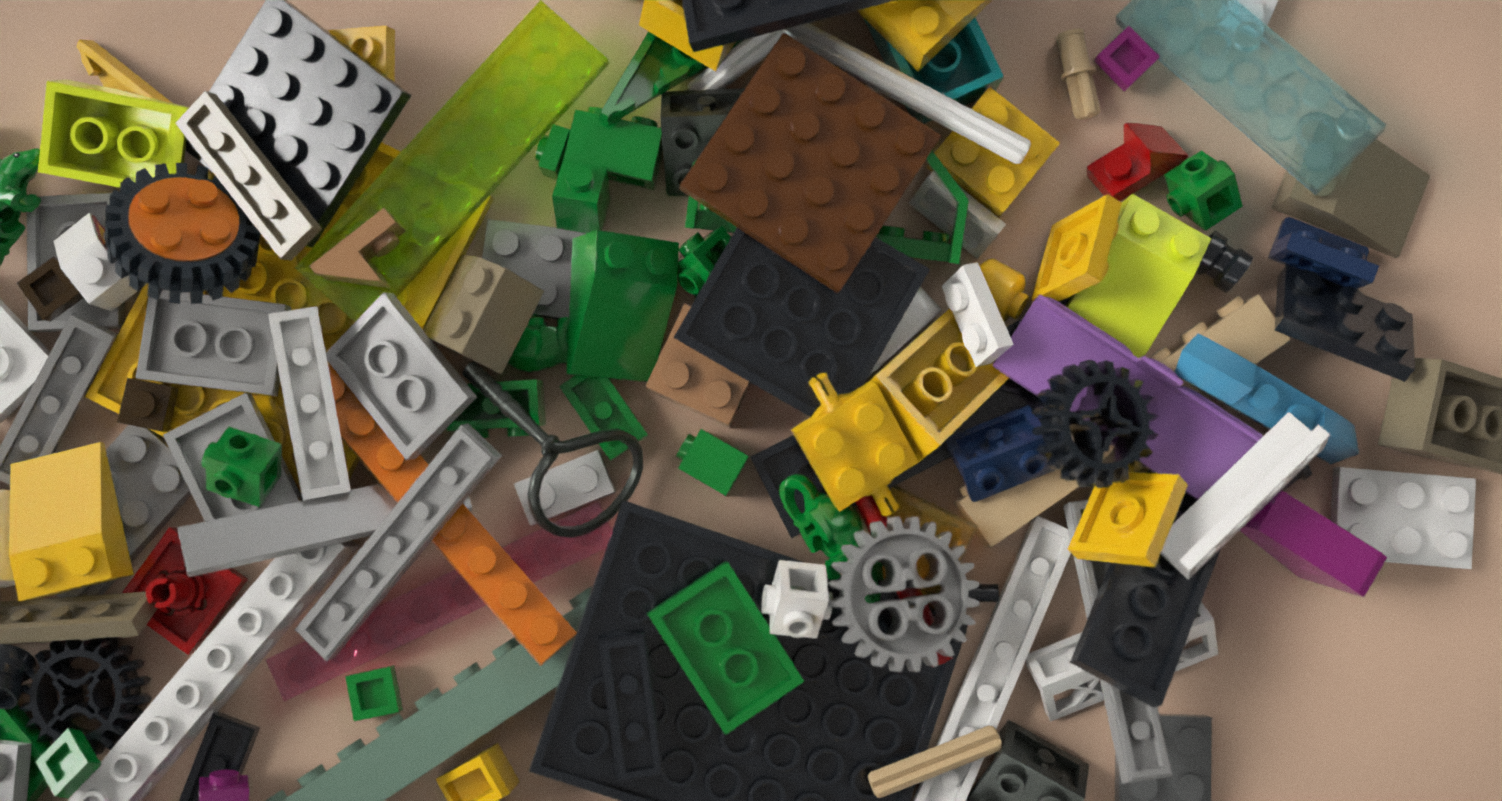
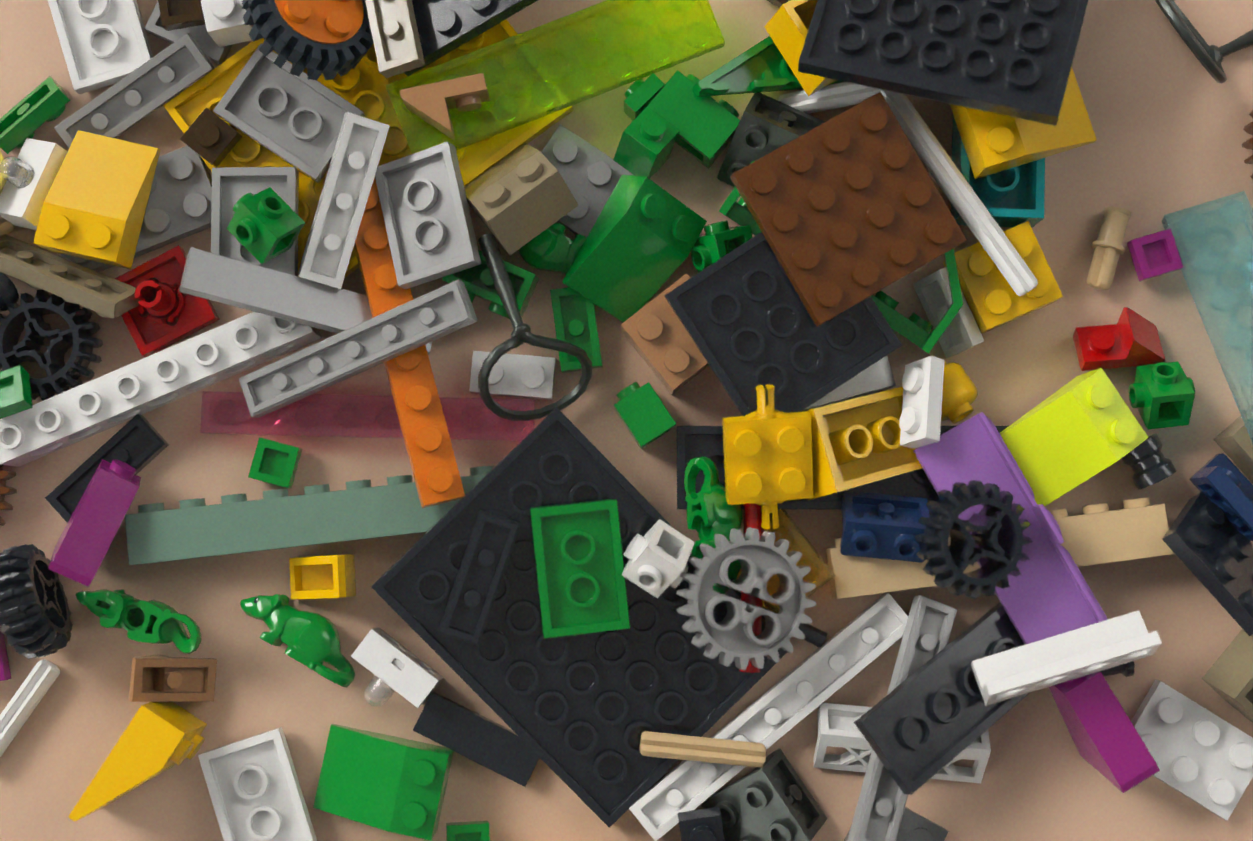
camera: 25 degrees right, 0 degrees up
(1078, 250) = (1033, 392): yellow plate -> none
(1129, 519) = (962, 631): yellow plate -> none
(1261, 395) = (1125, 588): dark azure brick -> none

